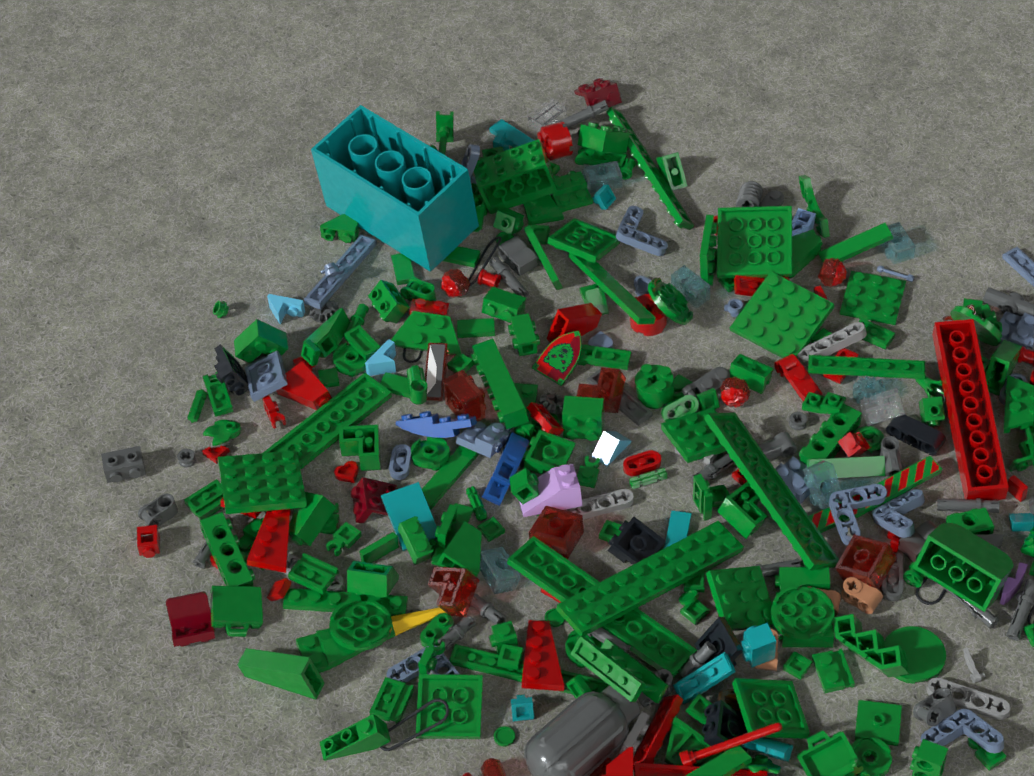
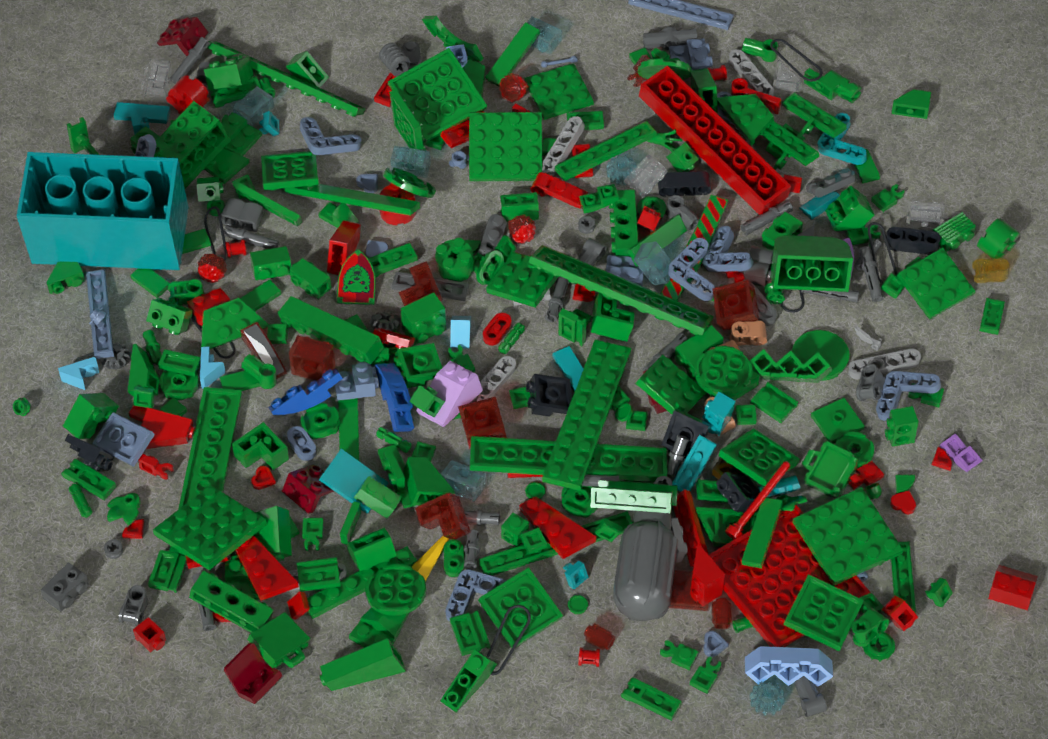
camera: 40 degrees left, 5 degrees up
(428, 661) = (475, 583): green plate -> none

